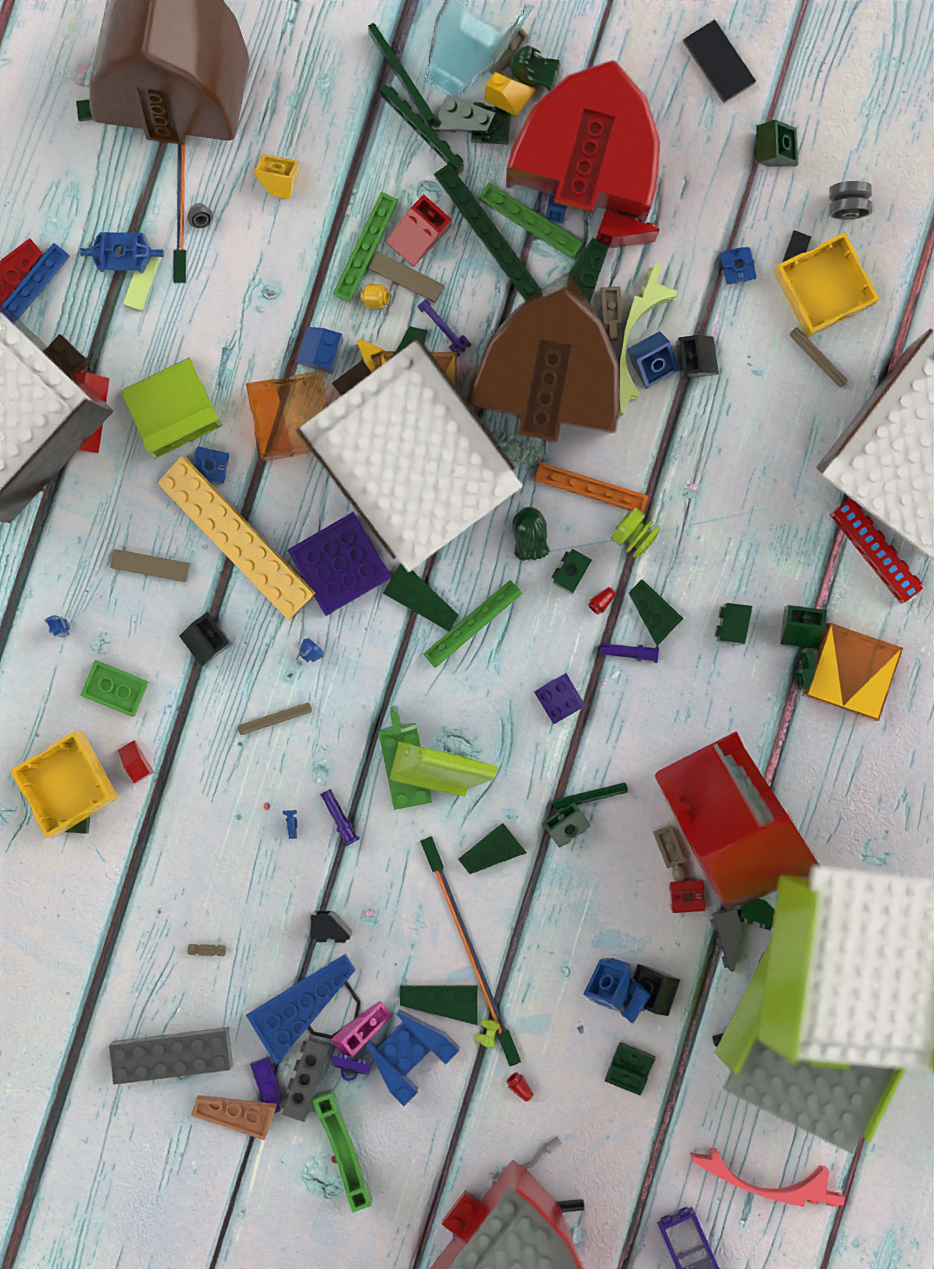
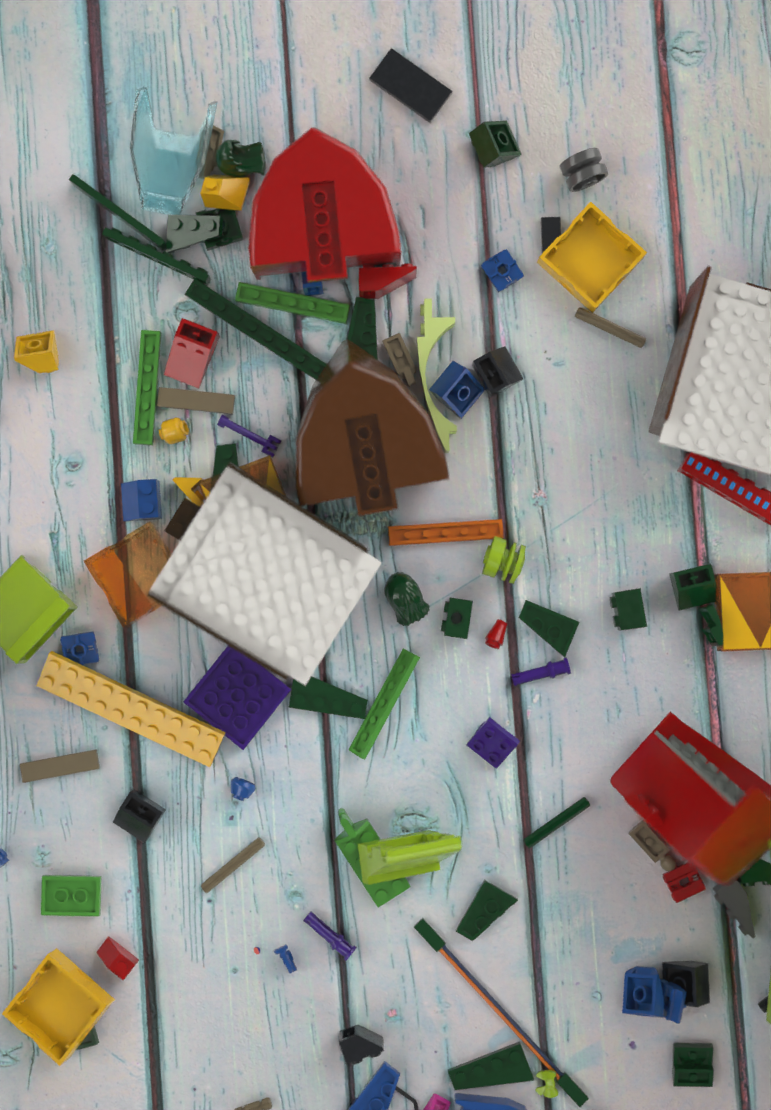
camera: 15 degrees left, 0 degrees up
(557, 825) = (545, 859): dark green brick -> none

